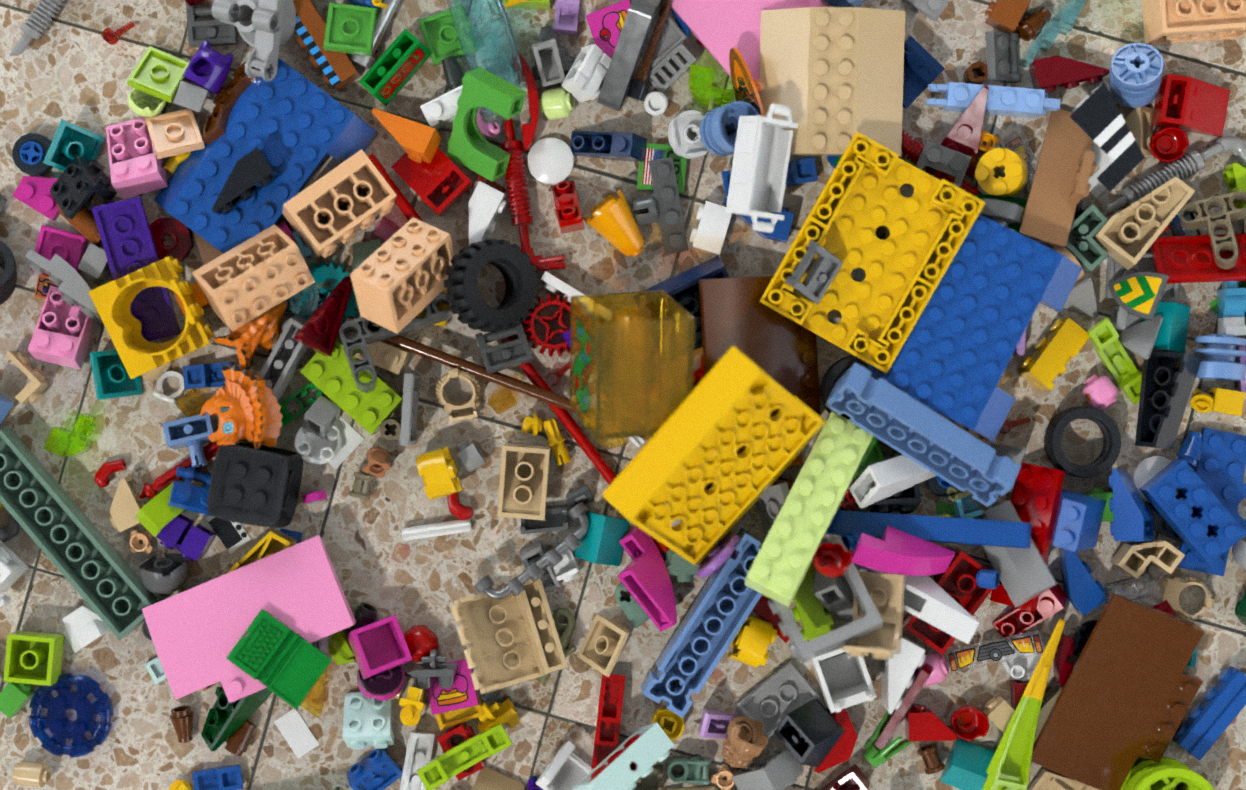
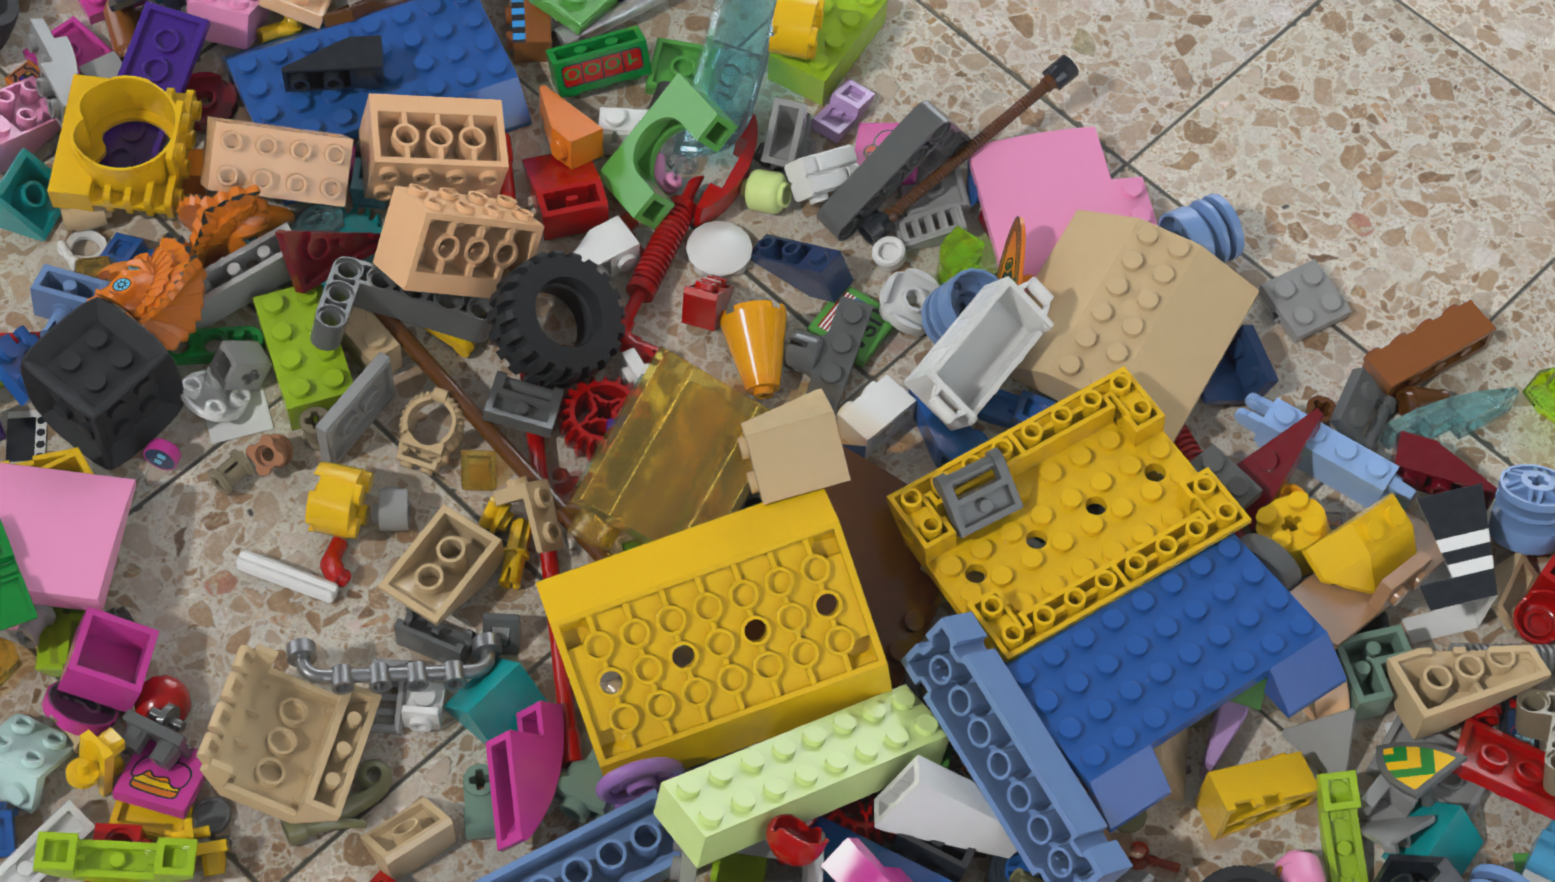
camera: 30 degrees right, 30 degrees down
(556, 413) = (539, 508): none -> tan bracket
(709, 337) = (794, 449): none -> tan slope
(1051, 161) = (1364, 547): none -> yellow wedge

